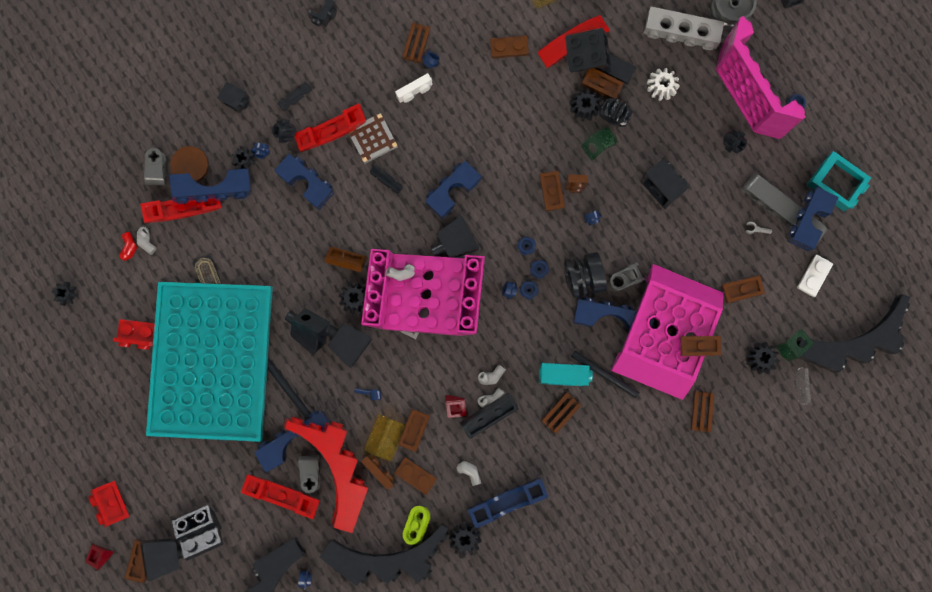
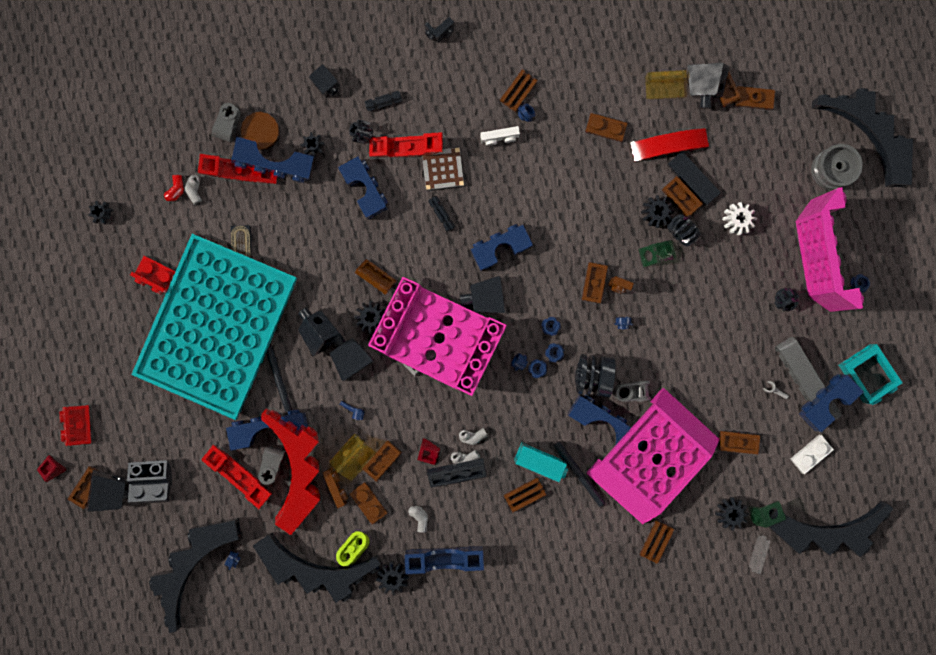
camera: 15 degrees right, 5 degrees up
(260, 150) = (332, 142): dark blue plate -> none
(407, 273) = (428, 312): light grey arm -> none
(588, 50) = (680, 160): black bracket -> none
(664, 183) = (704, 316): black brick -> none
(674, 20) = (807, 182): light grey brick -> none
(700, 345) = (678, 483): reddish brown plate -> none

